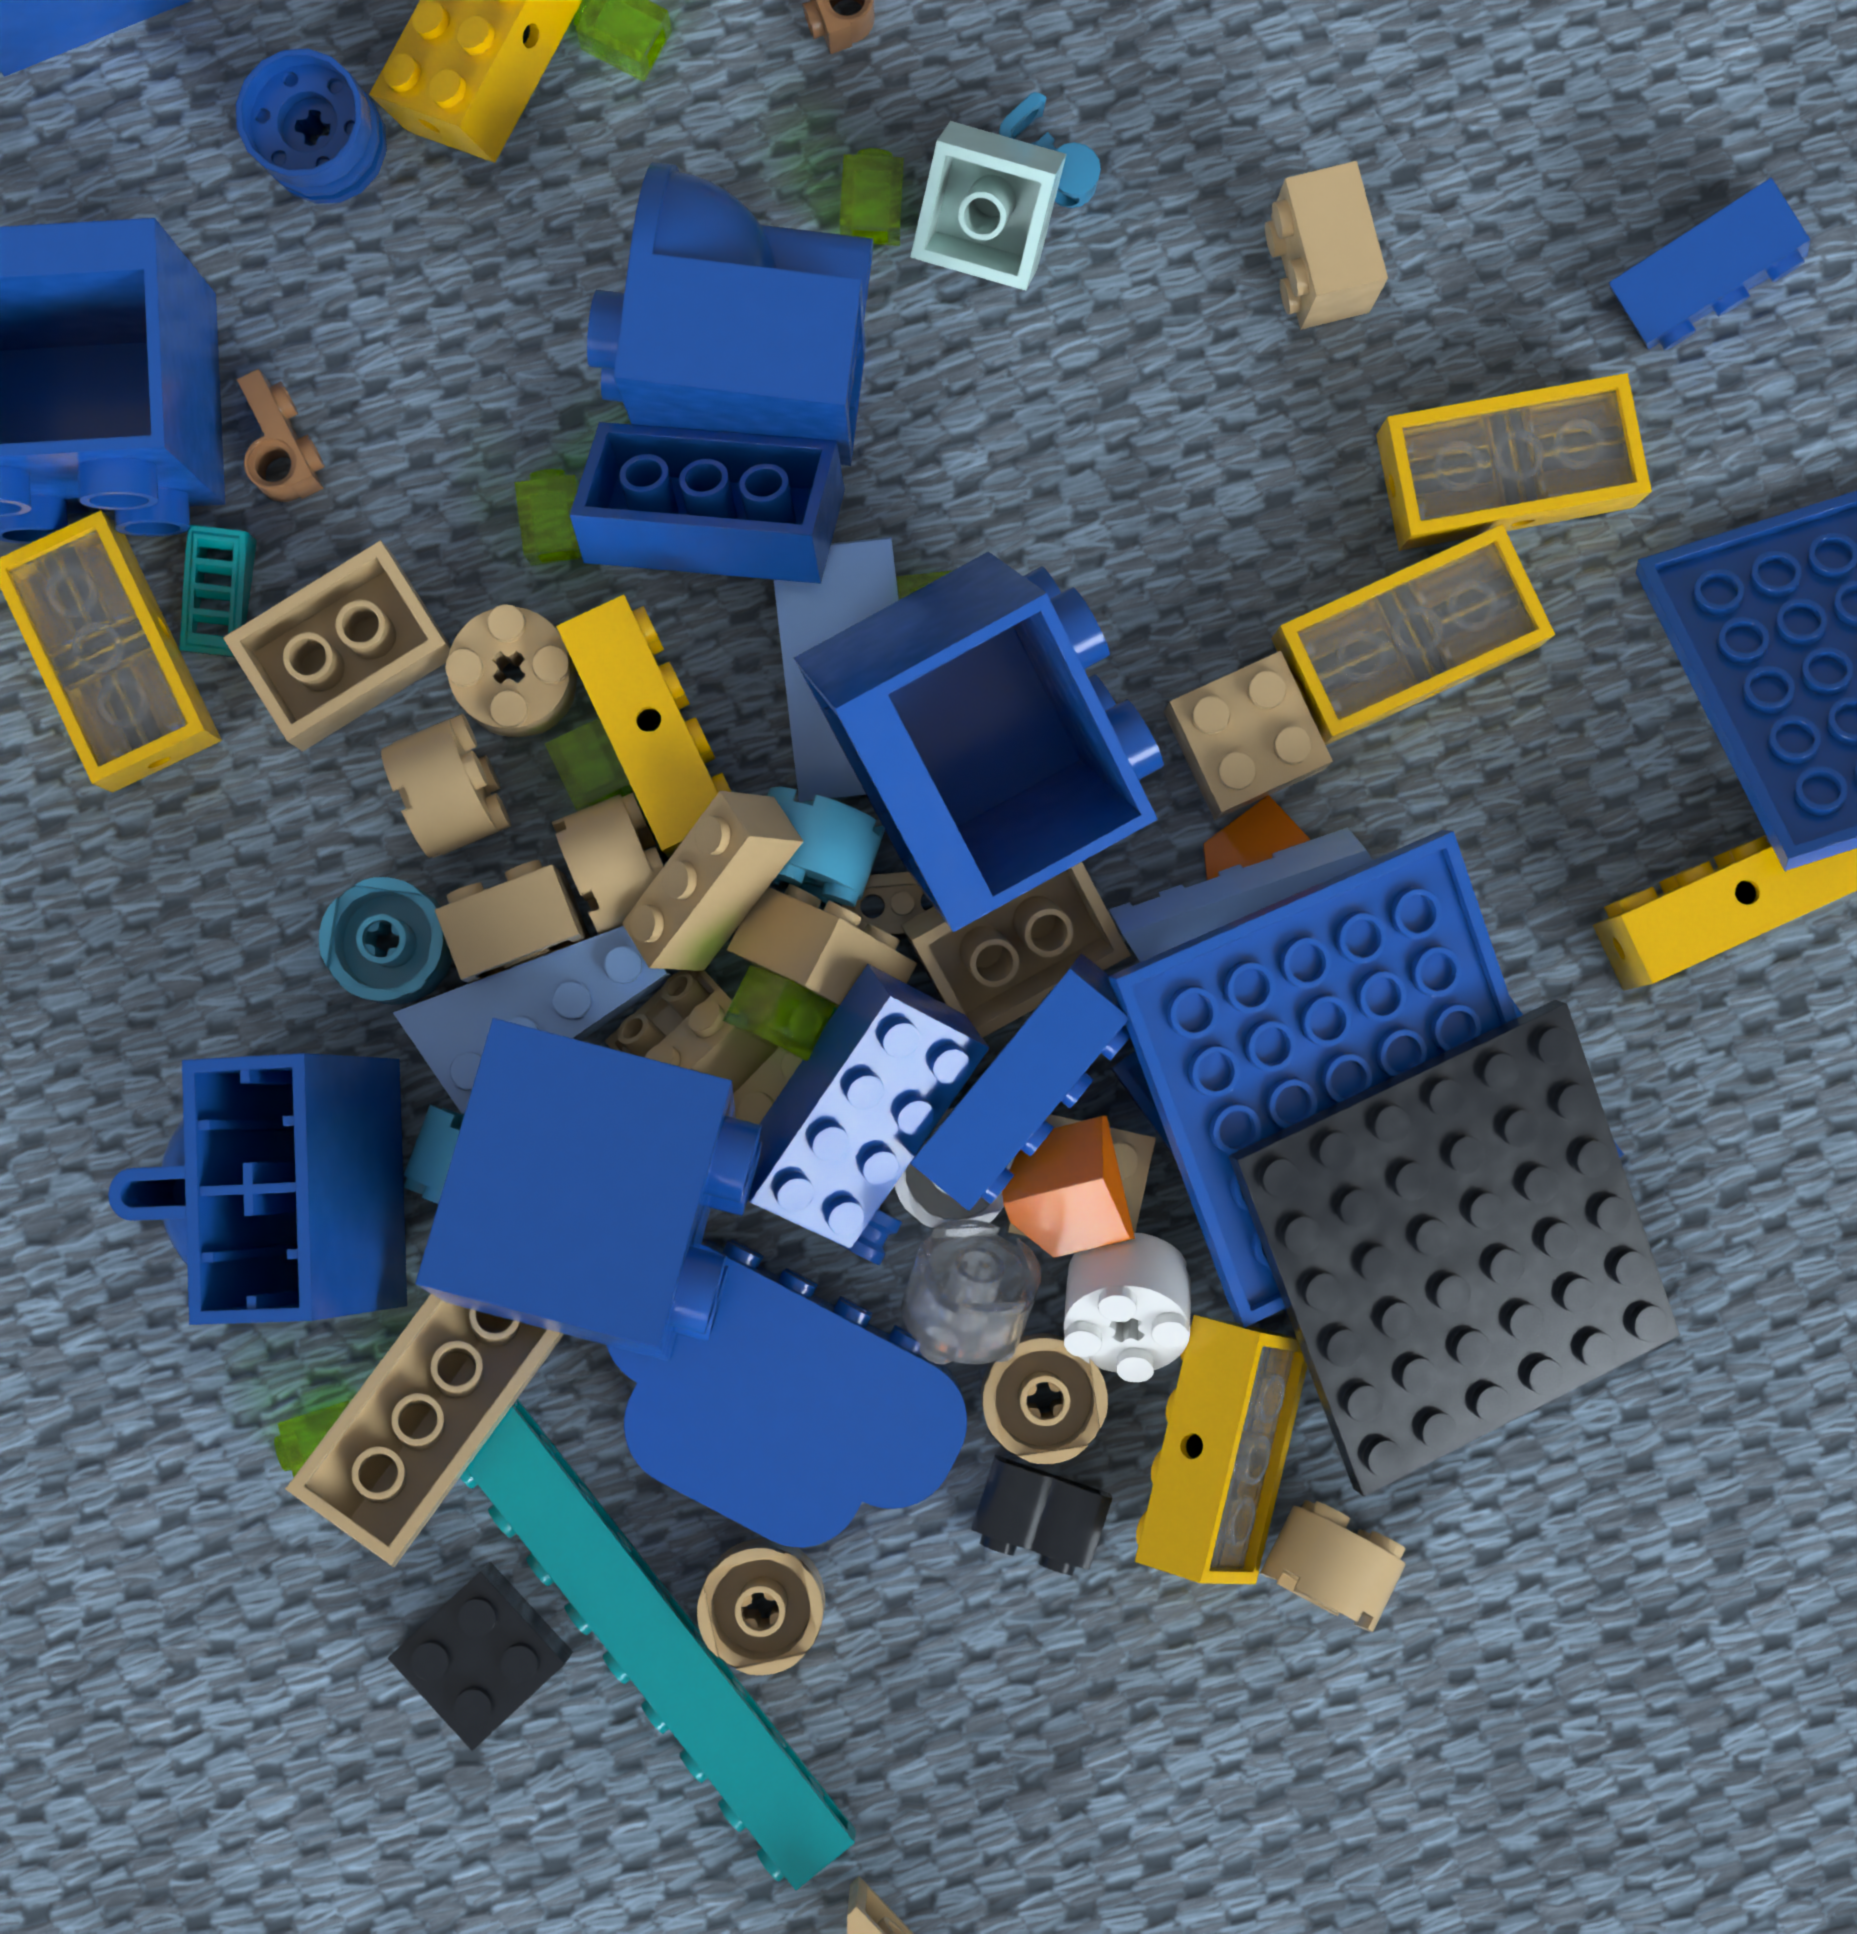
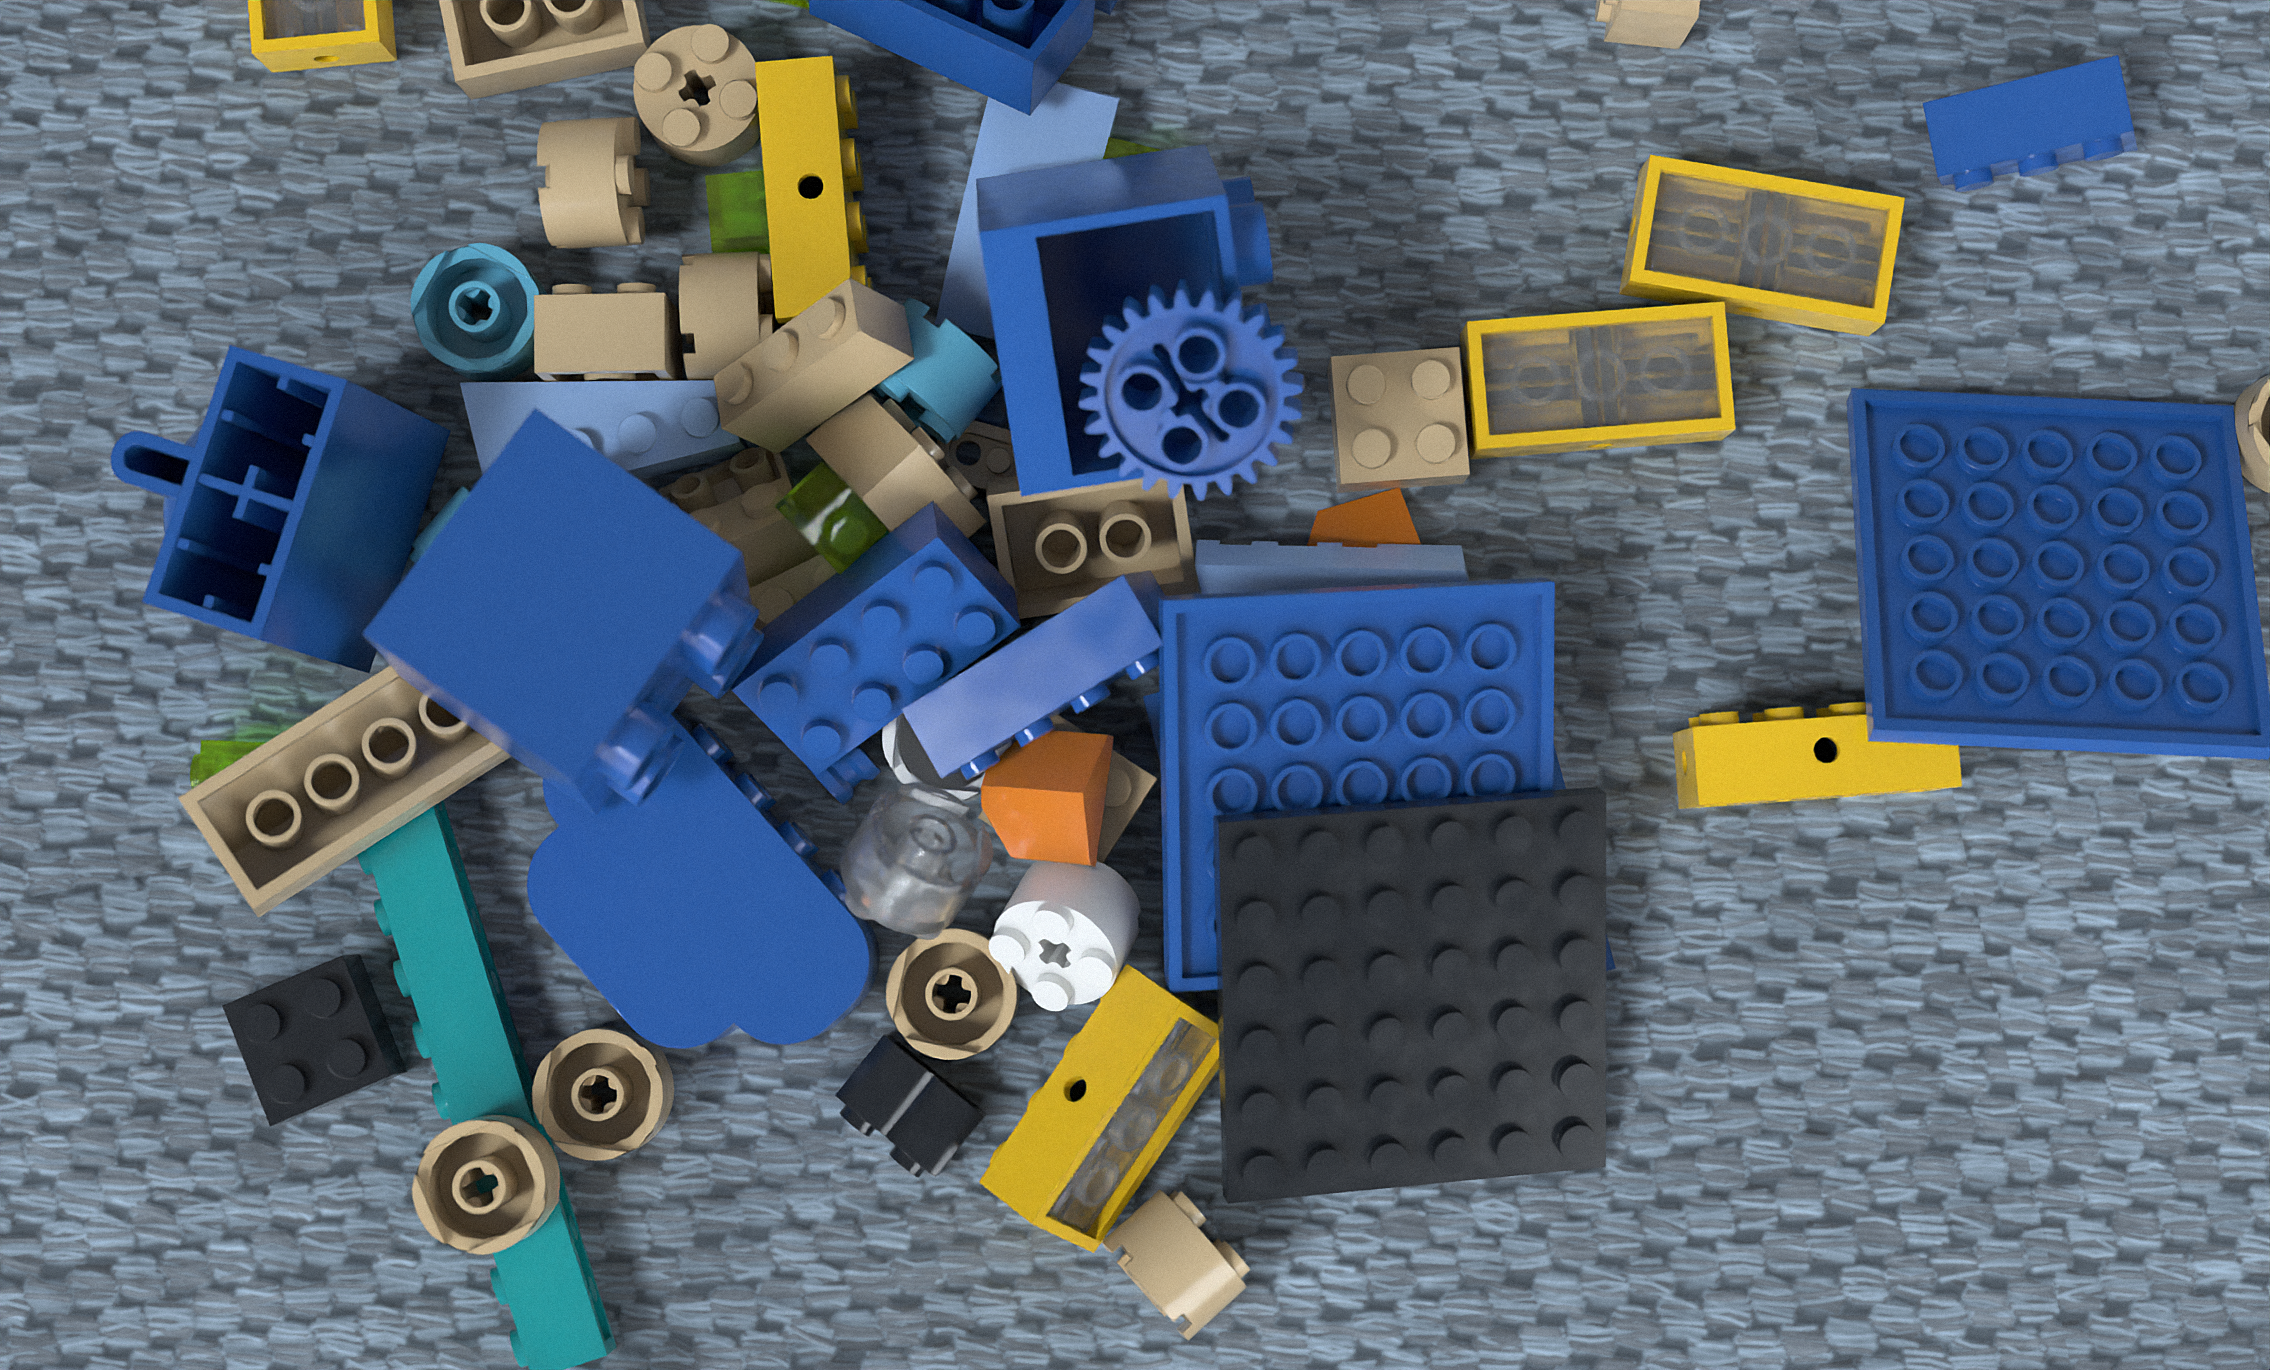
camera: 30 degrees right, 0 degrees up
(691, 1767) = (489, 1221): none -> tan brick
(1115, 737) = (1243, 361): none -> blue gear

